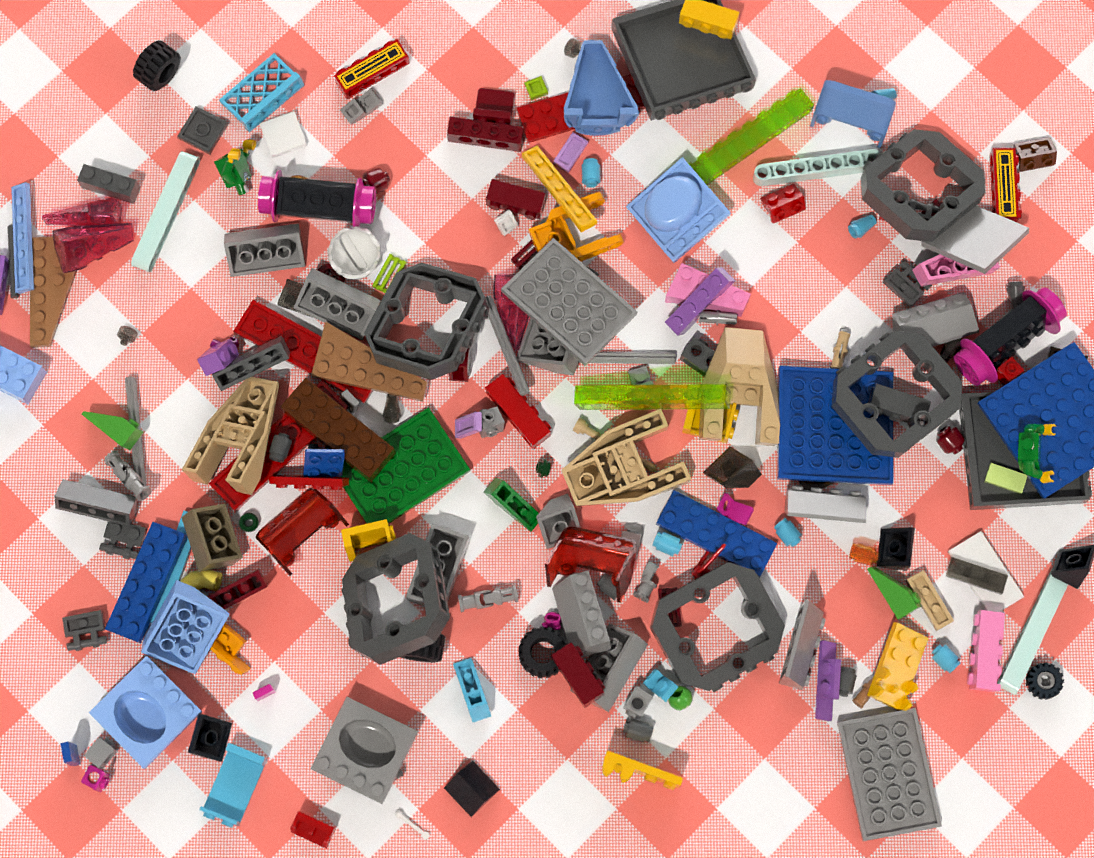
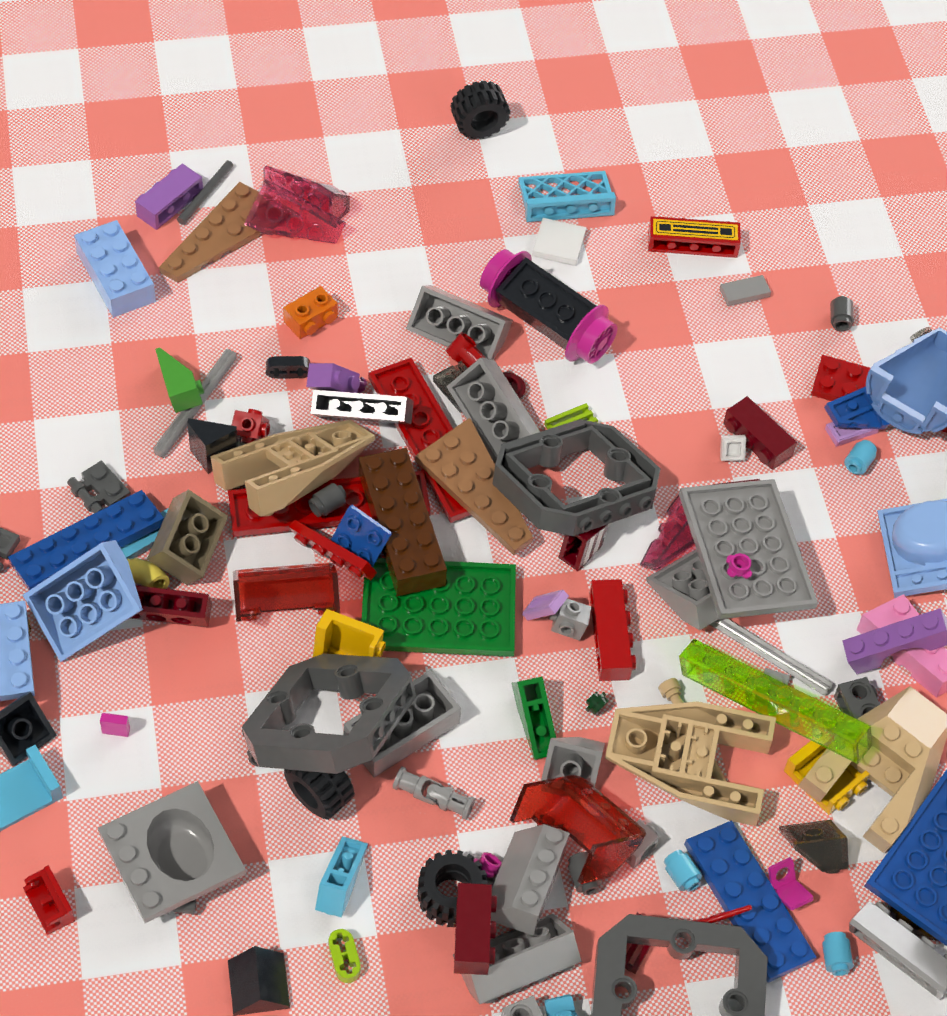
camera: 30 degrees right, 20 degrees down
(22, 238) = (231, 177): light blue tile -> none
(96, 502) = (101, 436): brick -> none
(108, 183) = (353, 179): dark grey brick -> none
(127, 335) = (259, 314): clear smoke tile -> none
(127, 475) = (152, 431): light grey piece -> none
(160, 310) = (310, 312): none -> orange brick
(165, 211) = (387, 235): light aqua beam -> none
(173, 458) = (210, 439): none -> black slope
(176, 363) = (287, 367): none -> black beam
(188, 427) = (250, 425): none -> red brick
(202, 130) = (481, 193): dark grey tile -> none
(227, 647) = (116, 653): light orange bracket -> none
(234, 167) = (488, 232): green torso -> none
(249, 516) = (235, 549): dark green plate -> none
(284, 270) = (464, 350): none -> red piece
(350, 400) = (437, 507): light grey tile -> none
(354, 252) = (548, 373): white piece -> none
(360, 108) = (658, 265): light grey slope -> none
(376, 178) = (626, 331): dark red head -> none
(391, 410) = (474, 544): clear smoke cone -> none
(399, 814) = (166, 997): white hinge -> none
(433, 88) = (745, 290): none -> light grey tile
(485, 134) = (770, 356): dark red brick -> none
(494, 106) = (796, 341): dark red bracket -> none
(506, 347) = (645, 558): light grey axle -> none
(509, 65) = (842, 313): none -> dark grey brick
(512, 733) = (338, 957): none -> lime beam
(536, 88) = (856, 351): lime tile -> none
(557, 228) = (796, 473): light orange plate -> none
(559, 188) = (814, 447): yellow tile -> none
(566, 141) = (855, 411): none -> blue wing
(576, 316) = (739, 560): none -> dark pink plate
(646, 586) = (628, 897): light grey connector -> none
(718, 317) = (908, 678): light grey axle -> none

